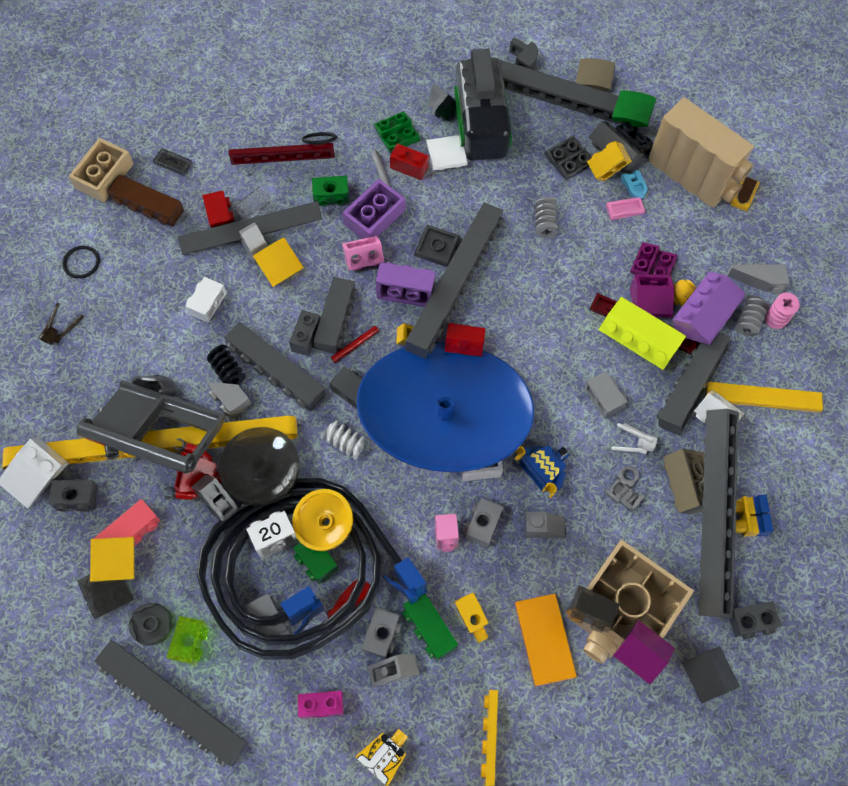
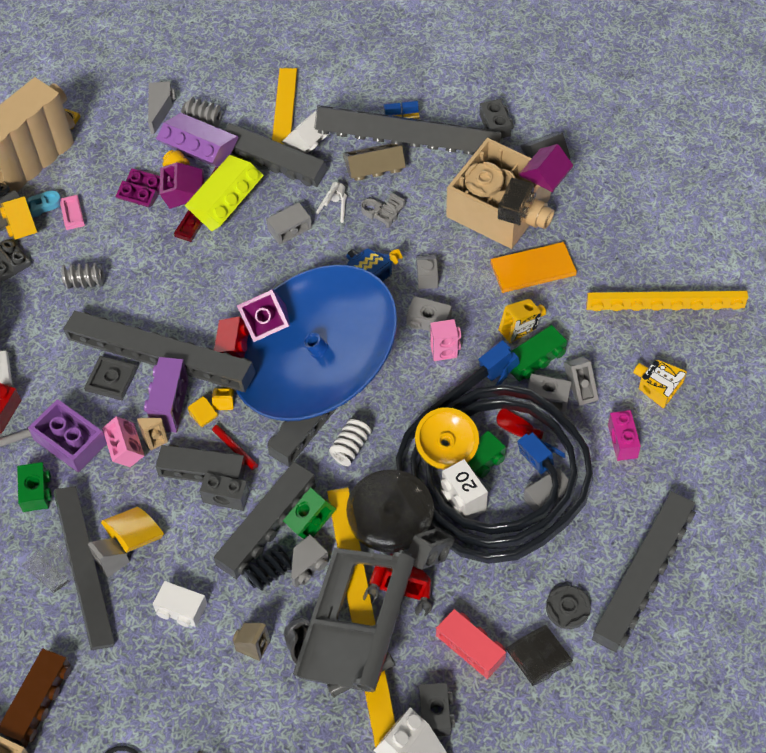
camera: 90 degrees left, 10 degrees down
(112, 559) = (508, 643): yellow tile -> none
(160, 351) = (252, 640): none -> dark tan slope
(185, 628) = (589, 572): clear neon green brick -> none
(217, 209) = (56, 608): red brick -> none
(269, 399) = (309, 514): none -> green brick
(366, 272) = (153, 432): none -> tan slope
(392, 317) = (202, 411): none -> yellow slope
(482, 365) = (264, 315): none -> magenta slope
(630, 579) = (484, 179): none -> tan tile
(782, 310) = (200, 85): bright pink piece -> none

